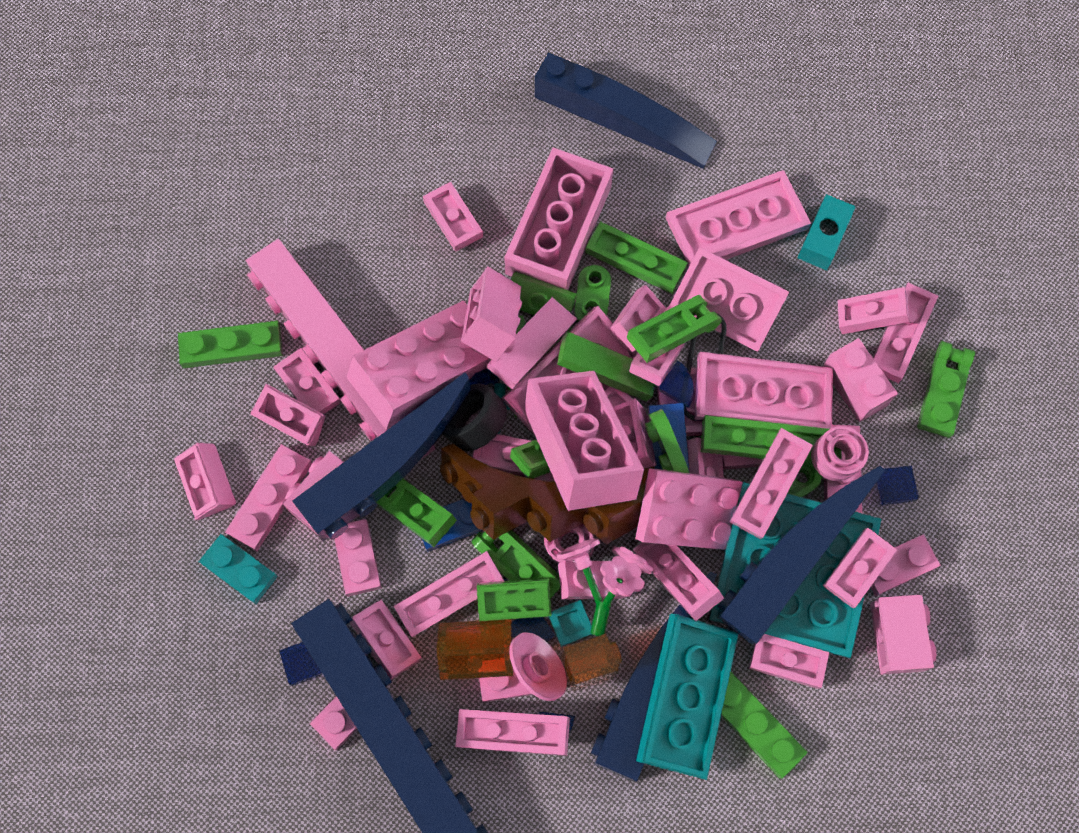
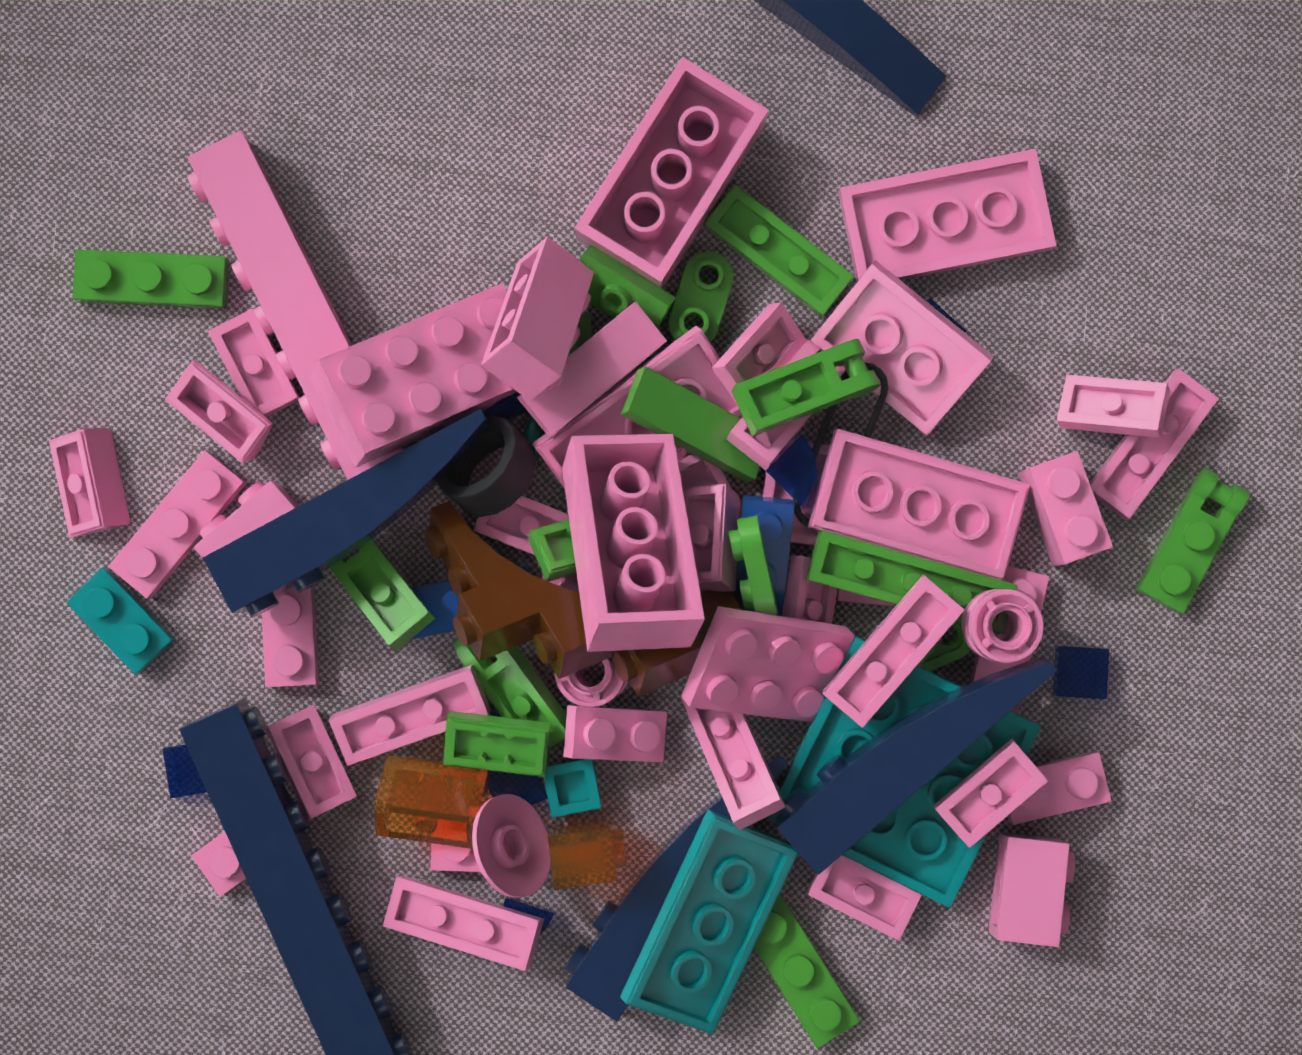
camera: 10 degrees right, 15 degrees up
(453, 216) = (513, 133): bright pink plate -> none
(620, 577) = (644, 752): bright pink plant -> none
(821, 248) = (1056, 283): teal piece -> none

